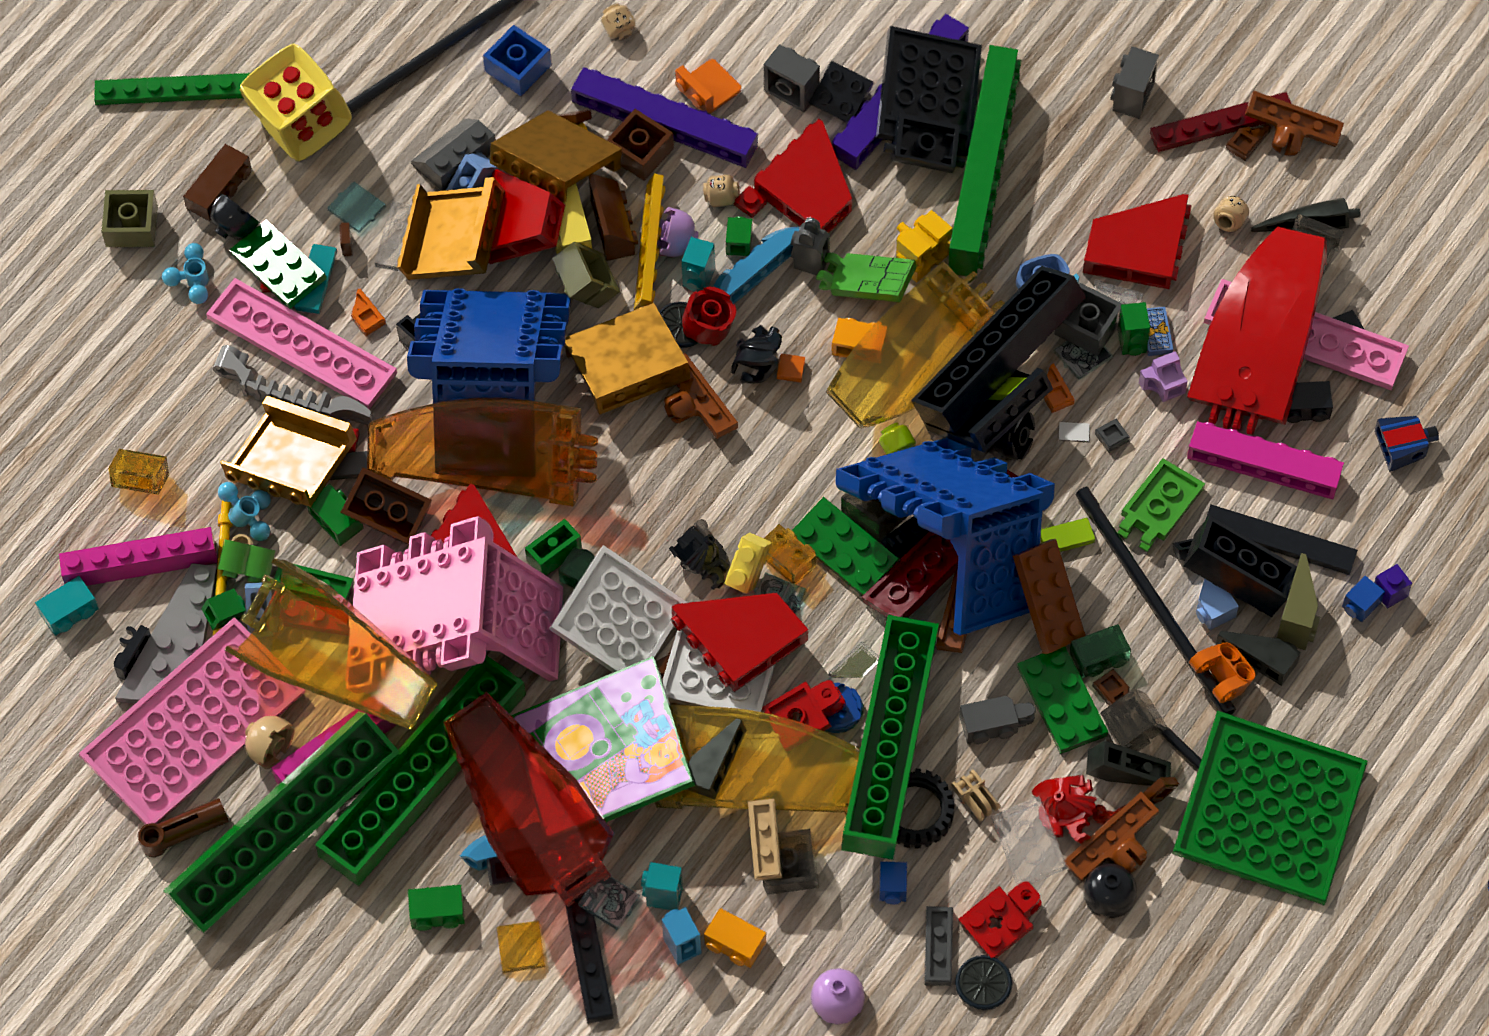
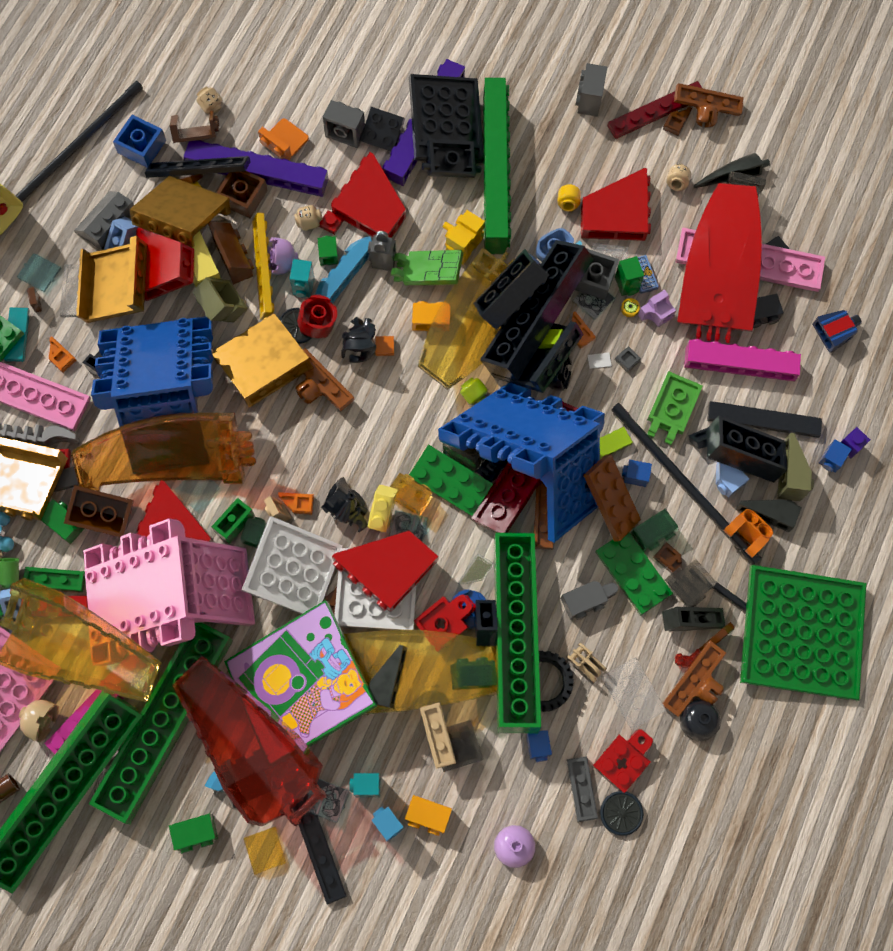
camera: 15 degrees left, 10 degrees up
(587, 104) = (199, 166): none -> black tile
(591, 61) = (194, 133): none -> reddish brown panel
(610, 539) = (276, 509): none -> tan plate
(640, 543) = (298, 502): none -> orange tile
(824, 775) = (473, 674): none -> clear green brick
(852, 719) = (486, 623): none -> black brick
(967, 317) = (511, 289): none -> black brick
(1067, 805) = (656, 660): red helmet -> none
(1075, 217) = (569, 197): none -> yellow head
(1091, 577) = (636, 473): none -> blue brick
(1129, 370) = (630, 307): none -> tile

